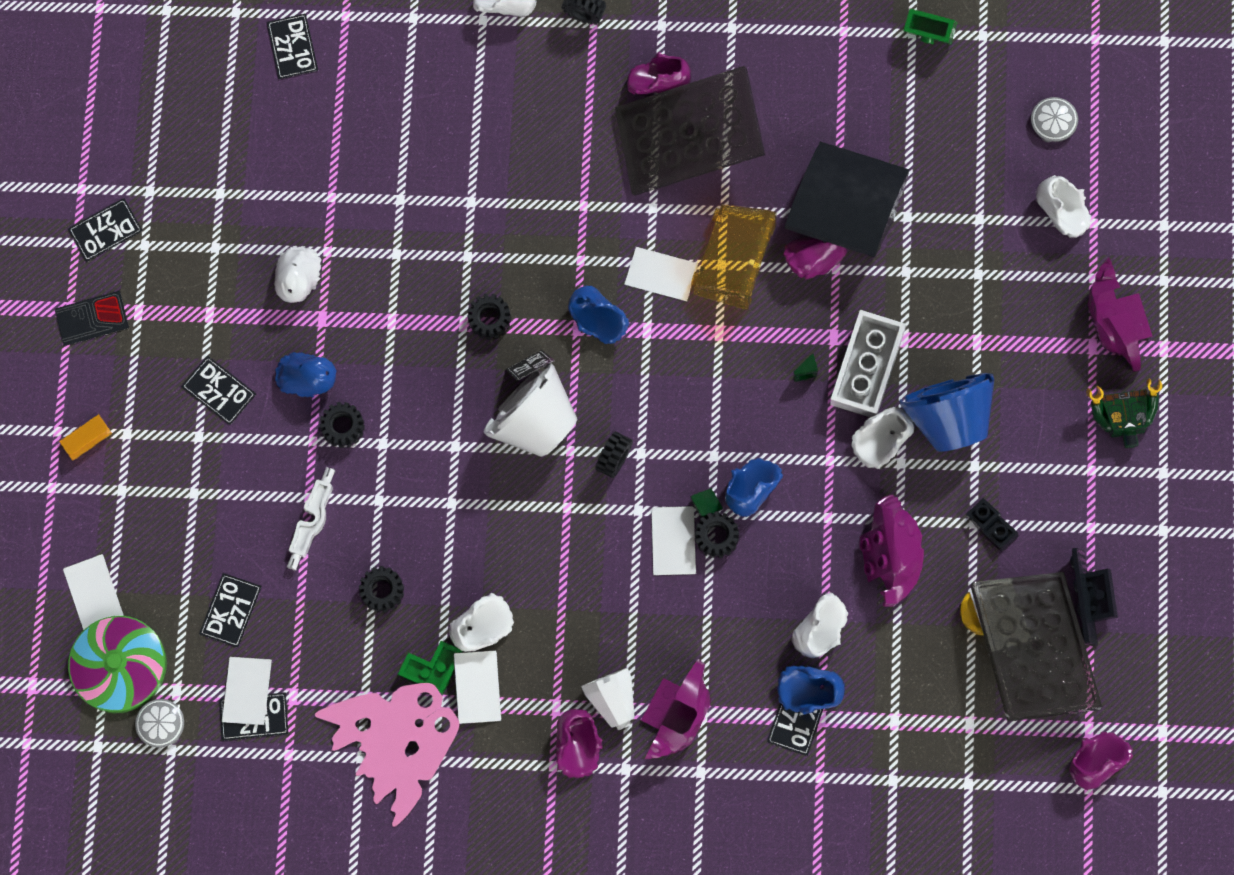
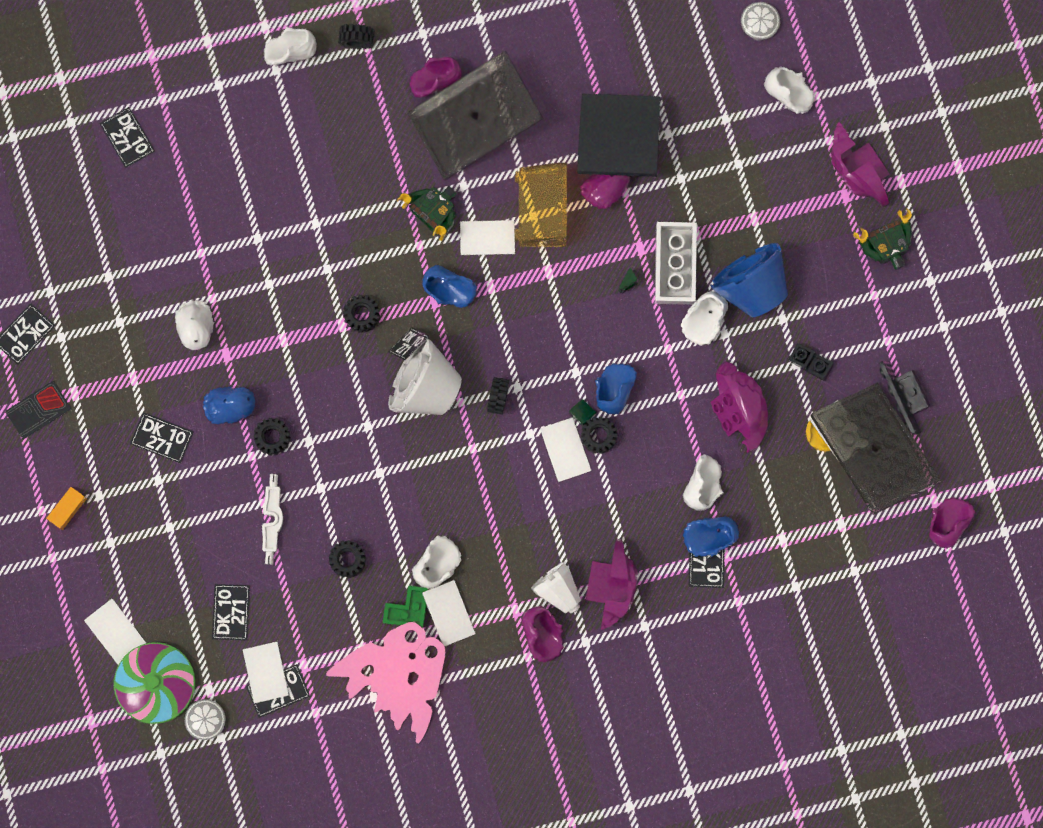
camera: 25 degrees left, 5 degrees up
(607, 221) = (432, 208): none -> torso

